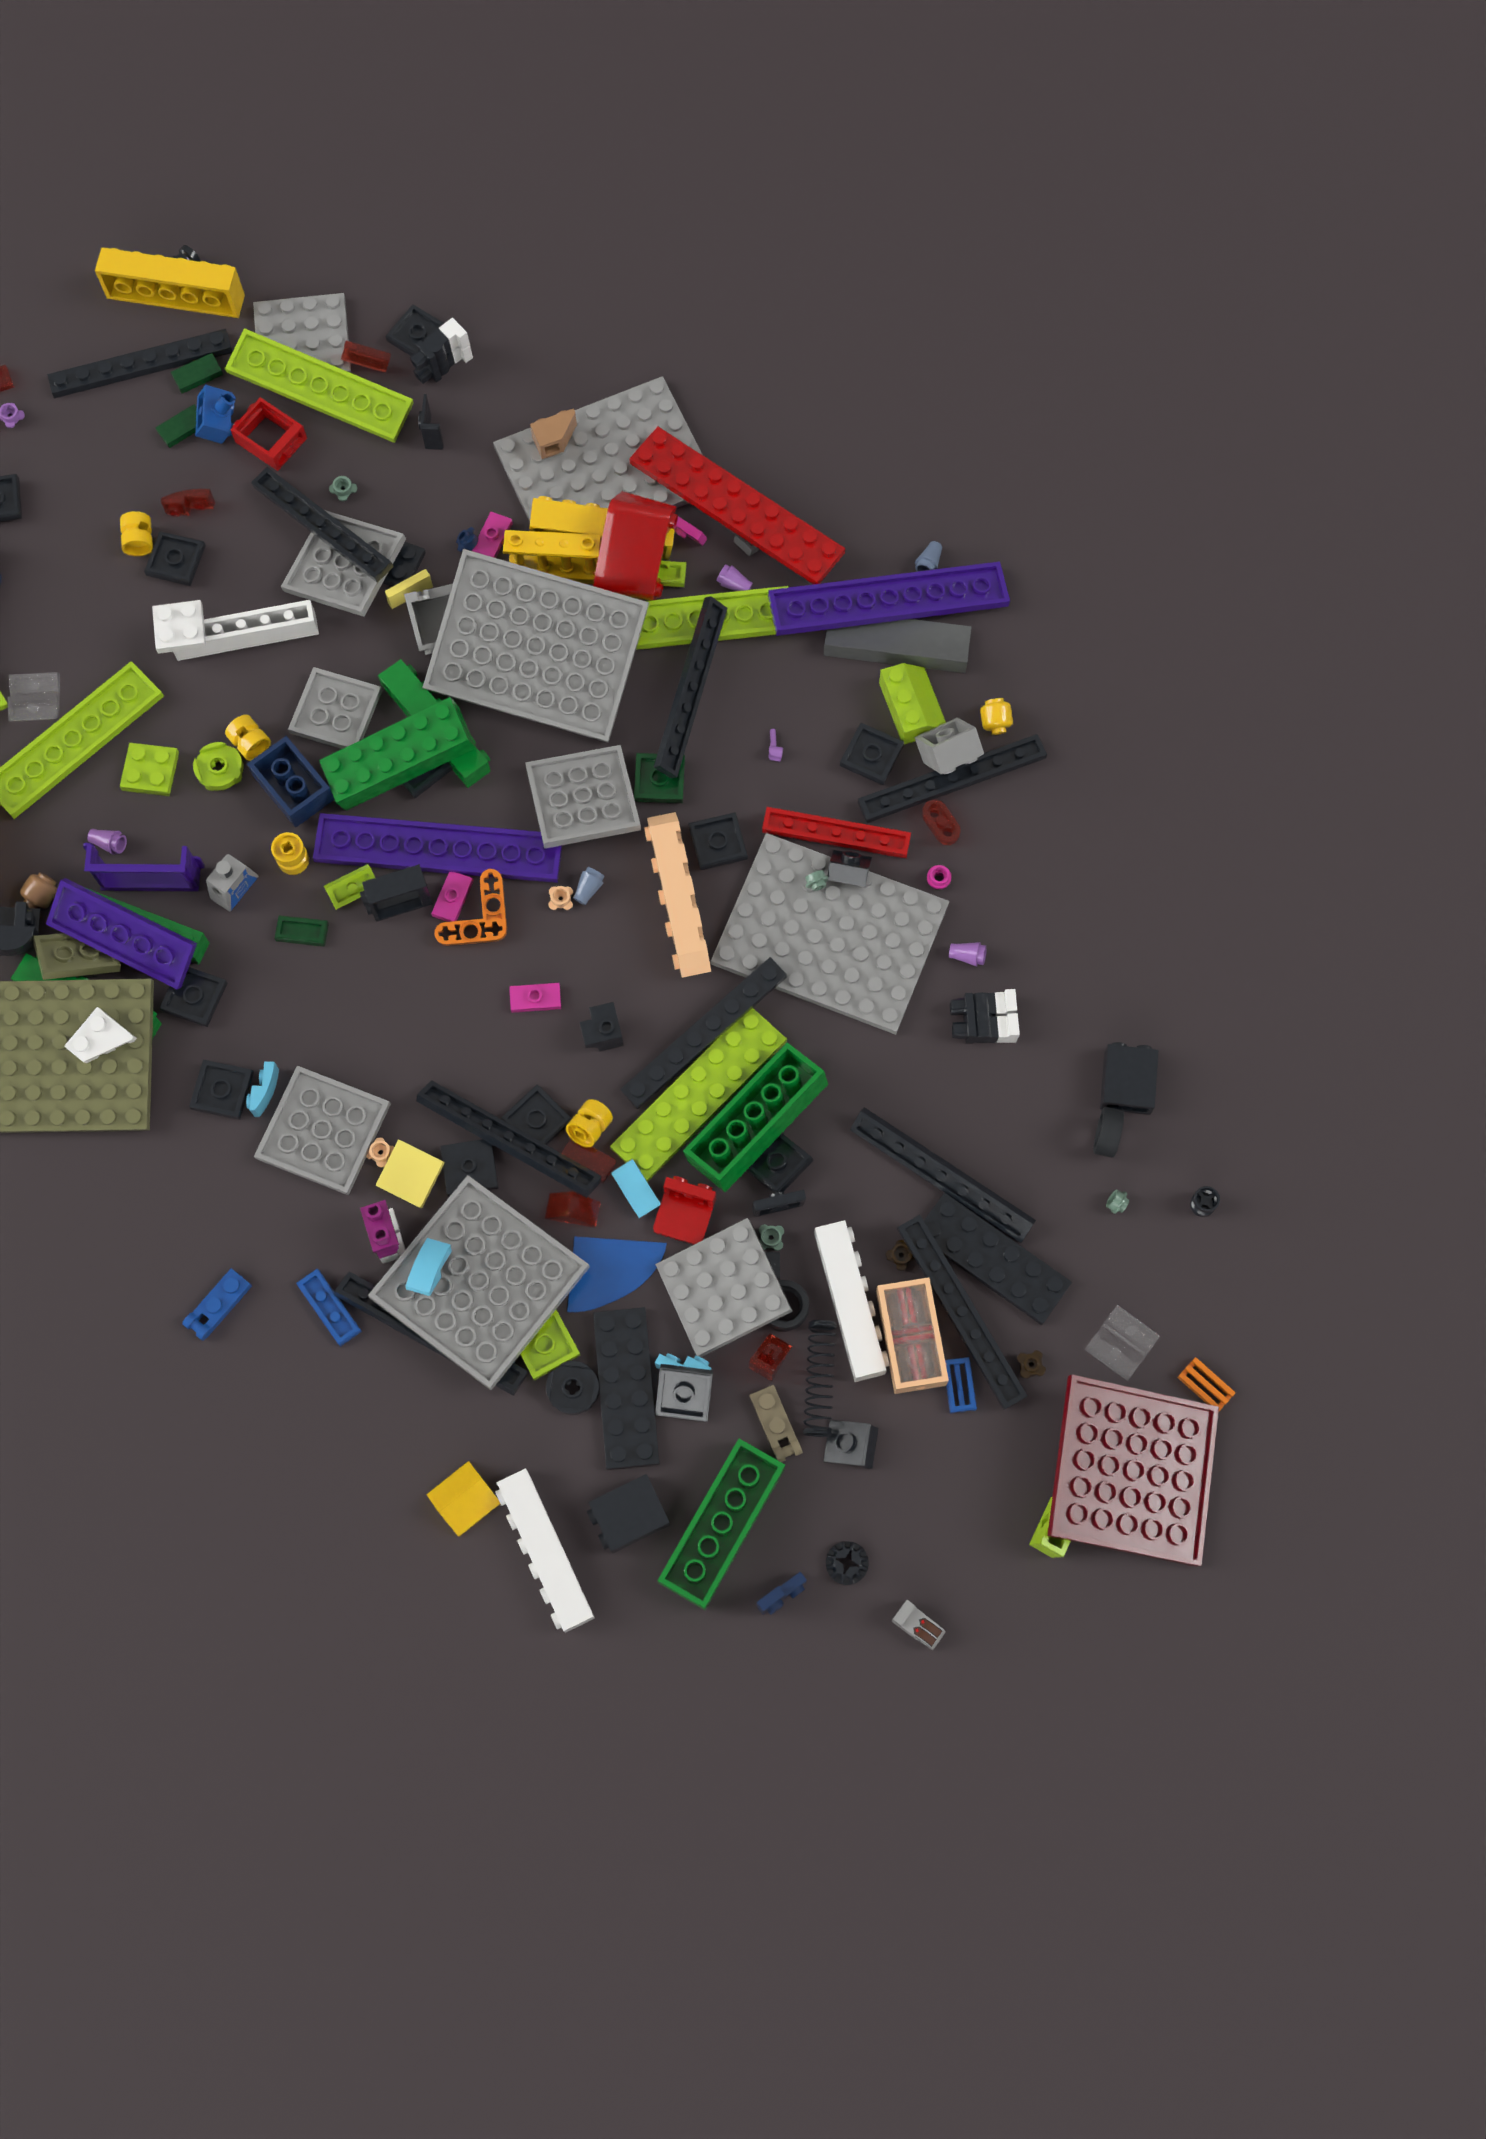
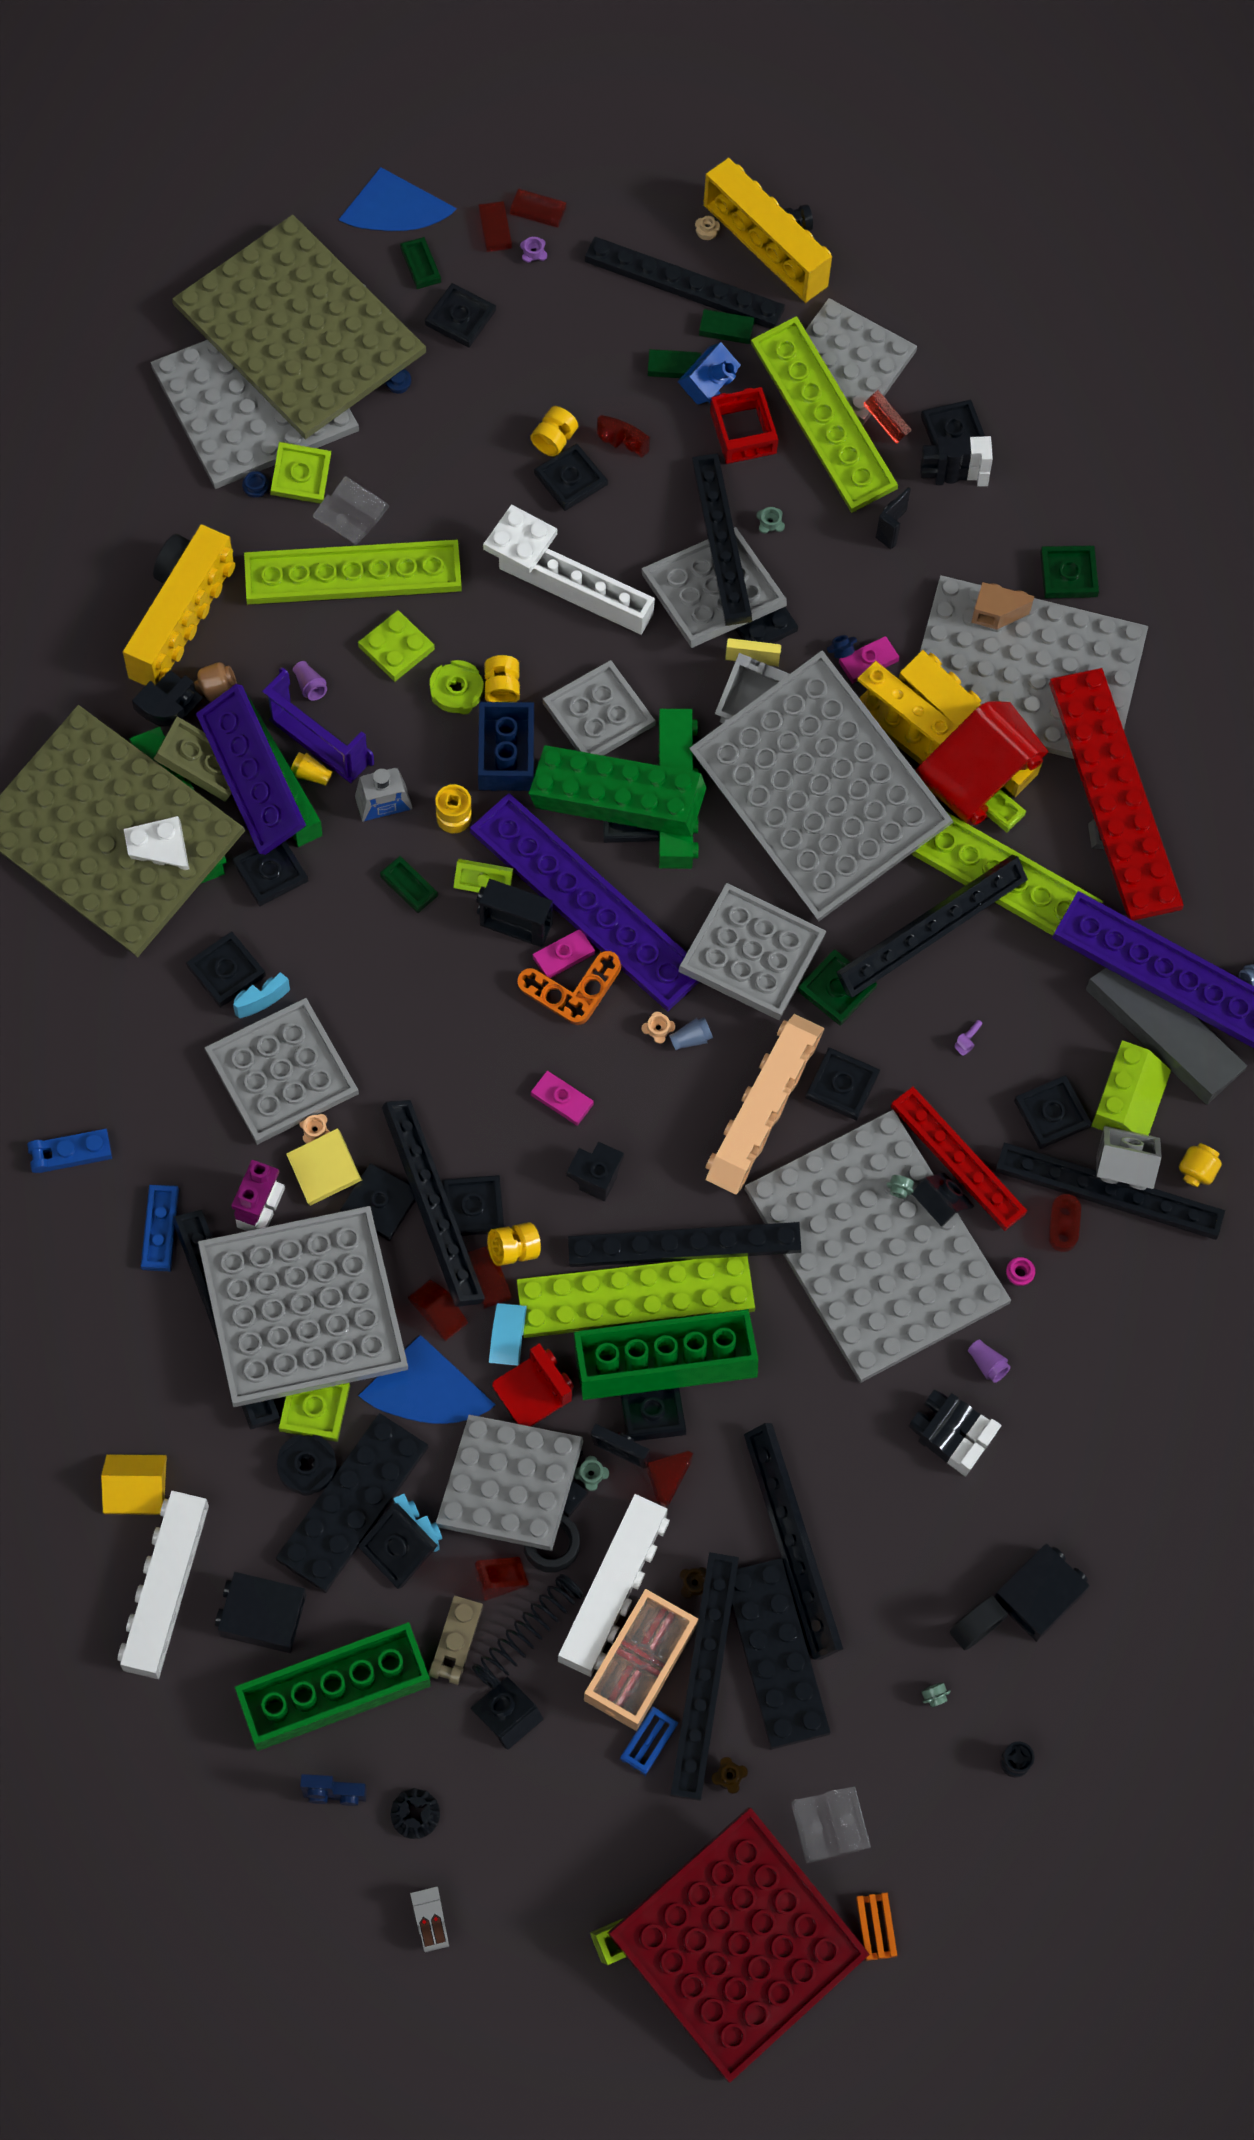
camera: 35 degrees right, 5 degrees down
(121, 315) = (704, 232): none -> tan plate
(162, 902) = (310, 769): none -> yellow cone
(427, 1266) = (263, 1257): medium azure slope -> none
(579, 376) = (1069, 571): none -> dark green plate
(686, 529) = (1050, 780): dark pink plate -> none
(733, 579) = (1057, 858): medium lavender cone -> none
(824, 1199) = (667, 1475): none -> clear red slope

